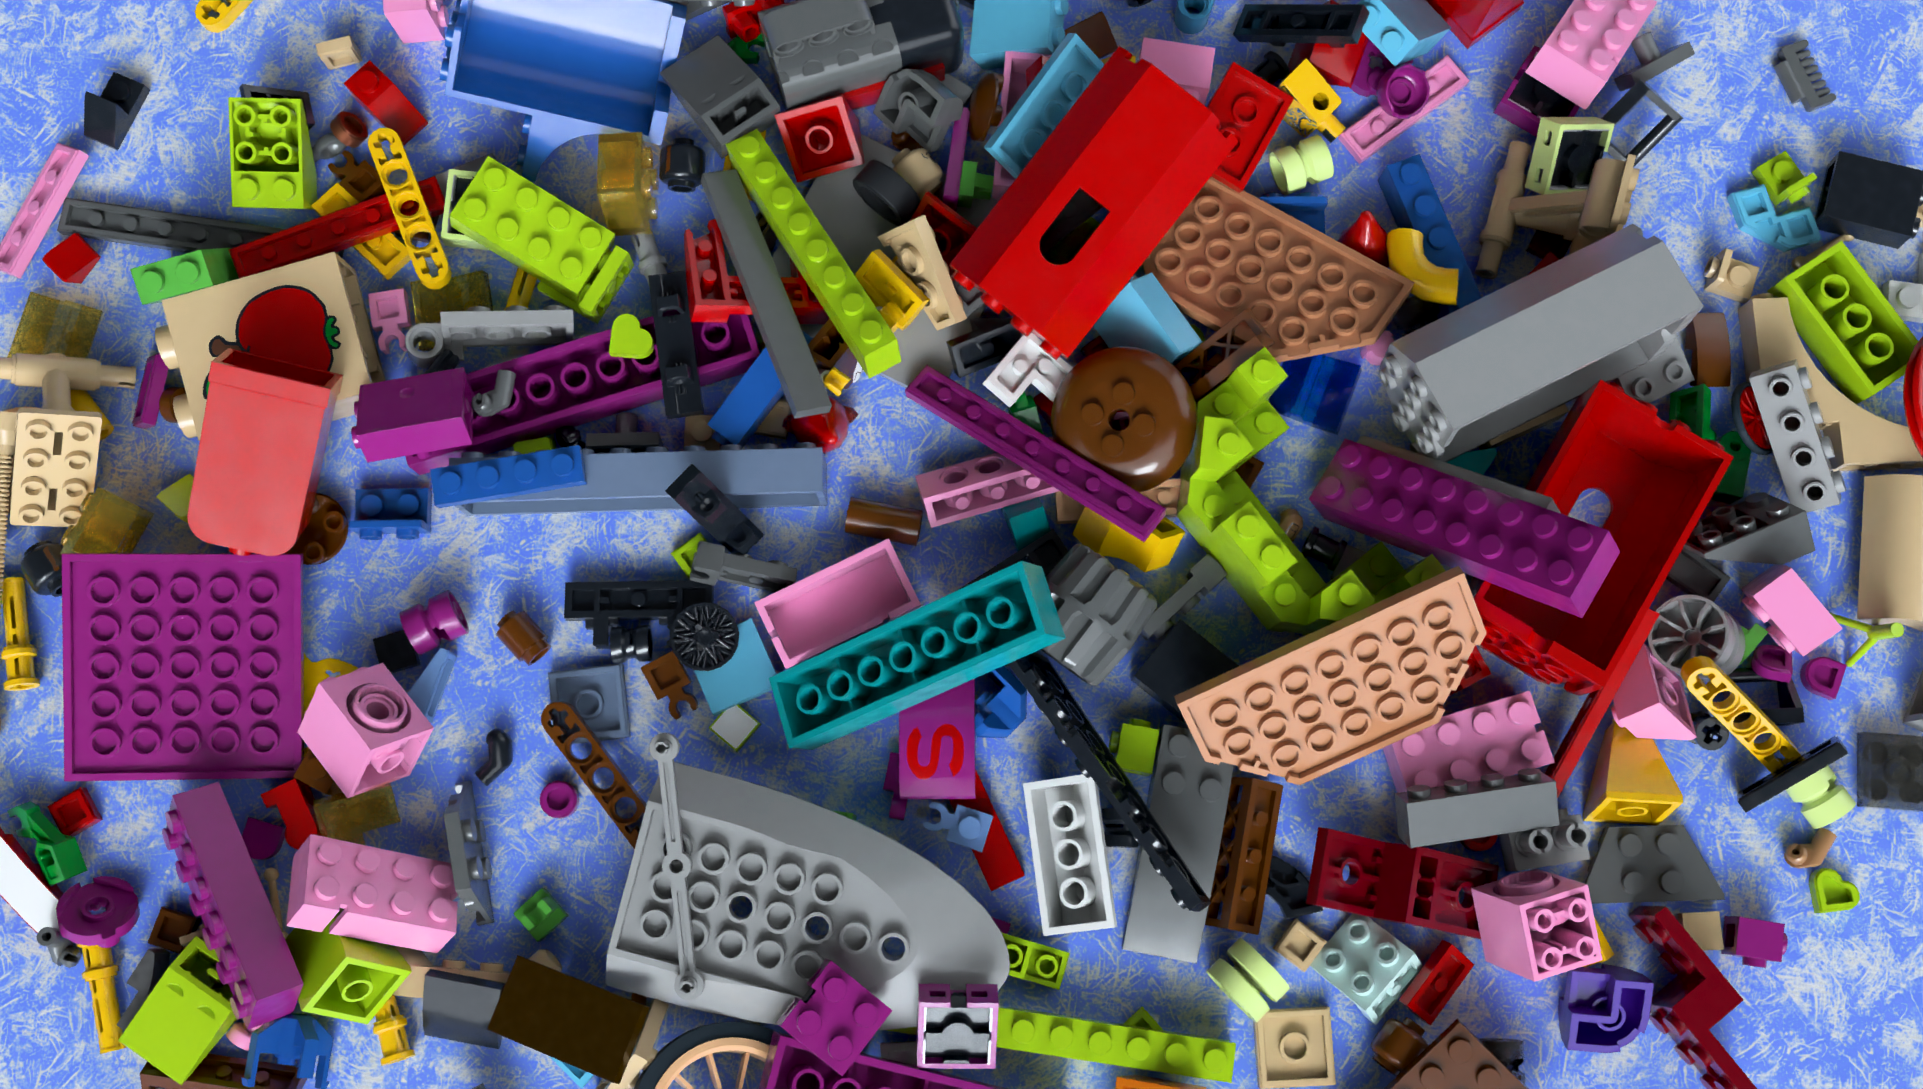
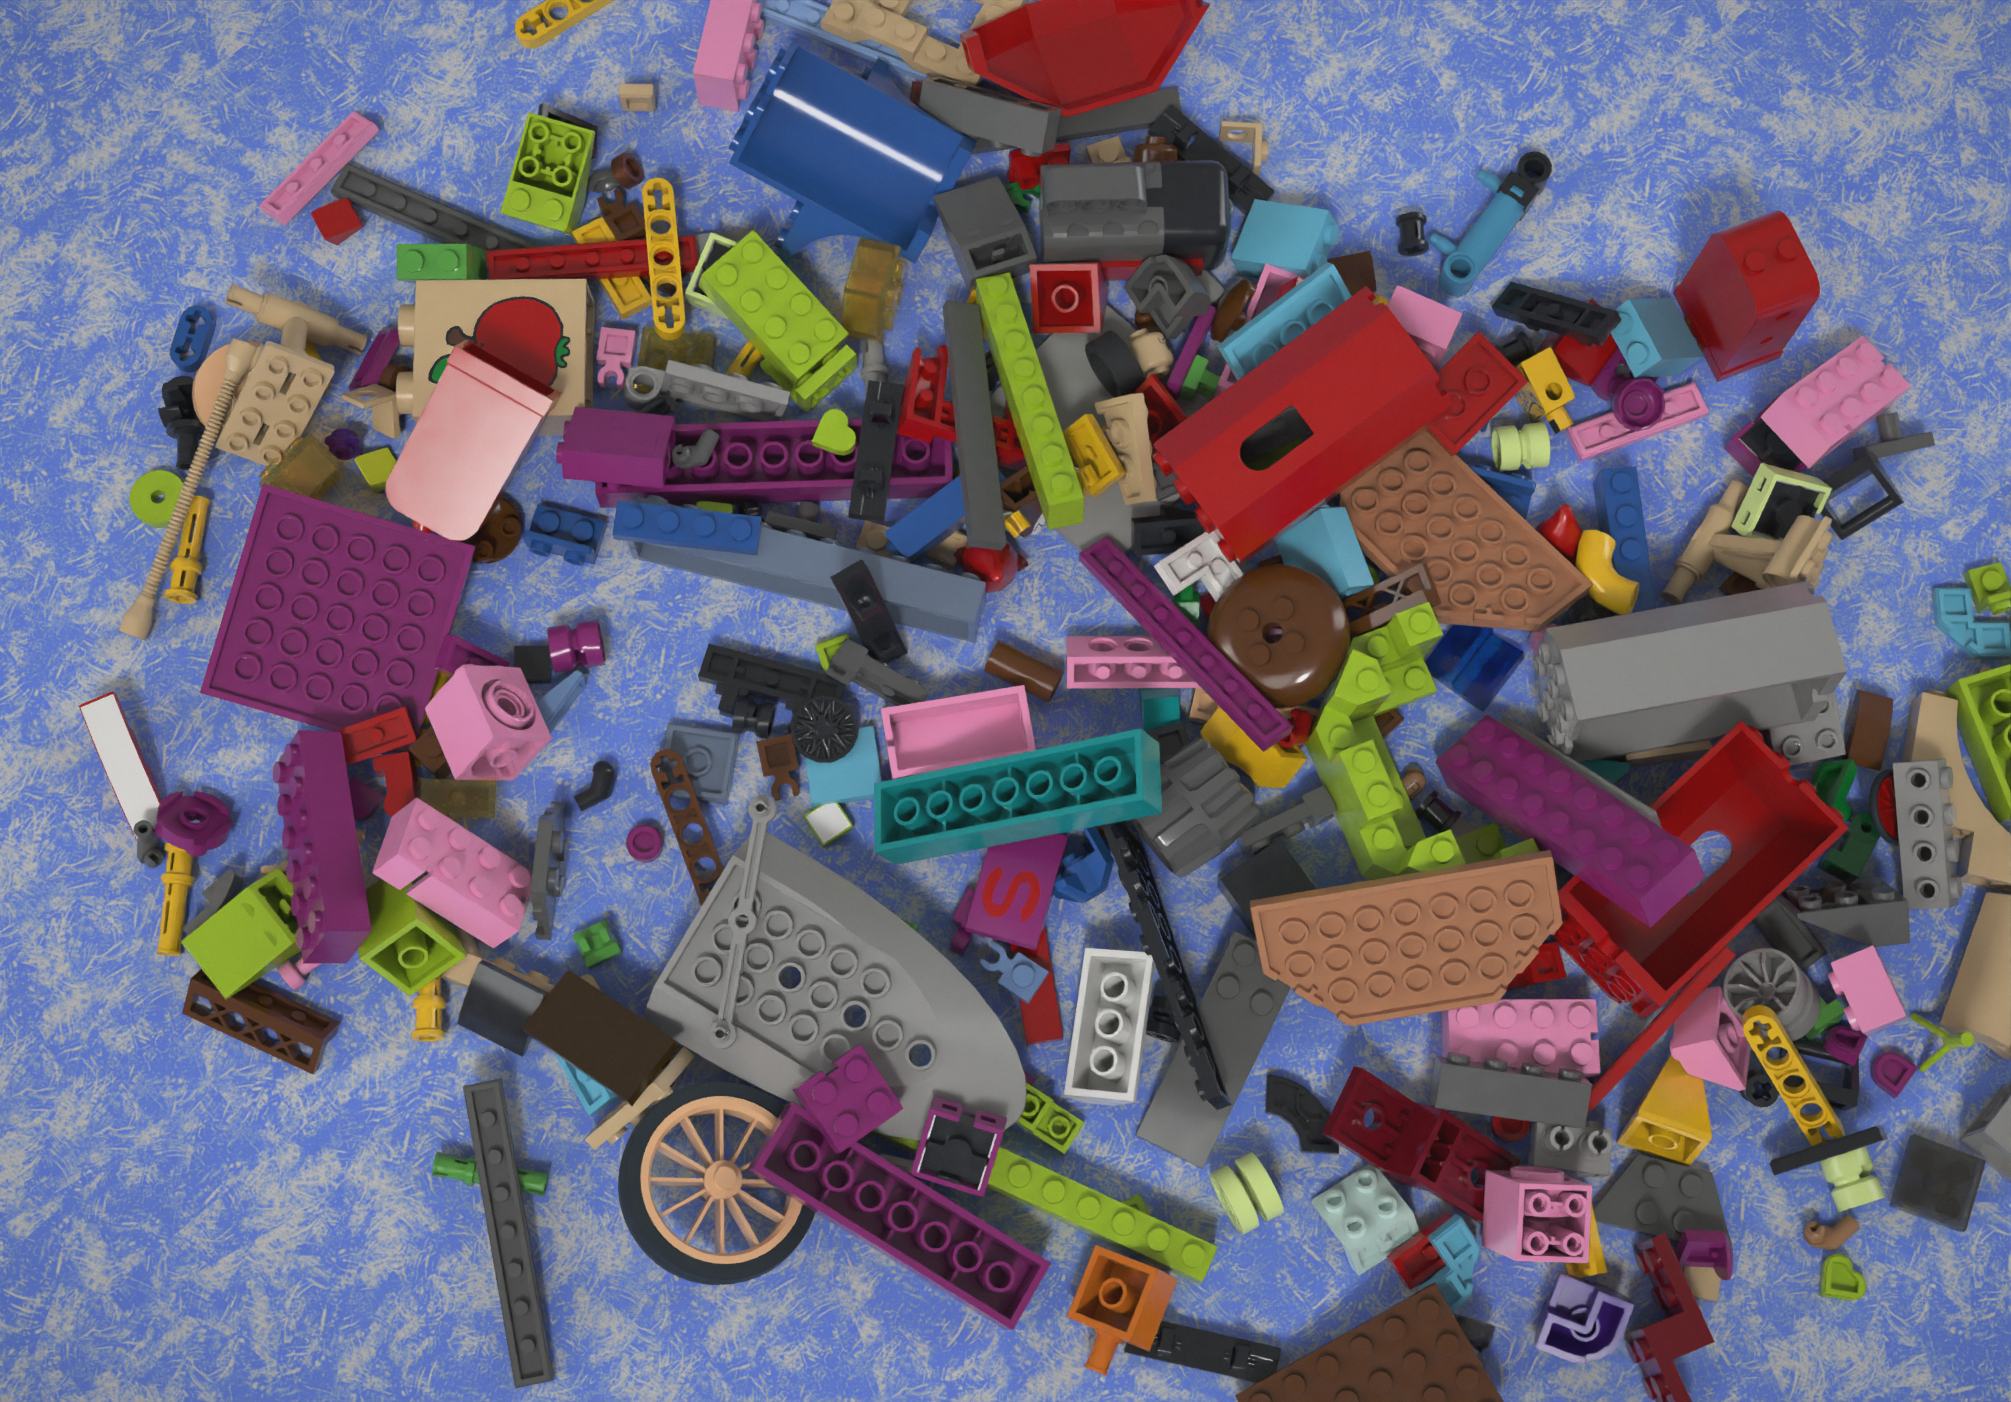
camera: 15 degrees right, 5 degrees down
(44, 568) = (235, 497): black head -> none
(55, 327) = (304, 278): clear yellow slope -> none
(55, 852) = (169, 758): green piece -> none
(75, 812) = (194, 728): red tile -> none
(113, 113) = (412, 96): black slope -> none
(142, 484) = (344, 444): none -> dark purple plate
(170, 926) = (251, 858): reddish brown tile -> none
(172, 437) = (384, 407): none -> tan bracket
(258, 772) = (377, 735): none -> red plate
(291, 1039) = (338, 988): blue piece -> none
(316, 666) = (458, 652): none -> magenta plate
(385, 102) = (668, 154): red slope -> none
(523, 637) = (654, 683): reddish brown brick -> none
(682, 165) = (928, 288): black head -> none
(1135, 746) = (1202, 947): lime brick -> none
(1170, 499) = (1301, 724): none -> red arm
(1247, 855) = (1278, 1077): reddish brown fence -> none
(1294, 1048) = (1273, 1274): tan tile -> none
(1299, 945) = (1306, 1179): tan tile -> none
(1398, 1044) = (1372, 1295): reddish brown head -> none
(1467, 976) = (1459, 1252): none -> medium azure tile
(1704, 903) = (1706, 1249): none -> magenta plate
(1730, 277) = (1911, 667): tan bracket -> none
(1754, 940) = (1749, 1301): magenta brick -> none

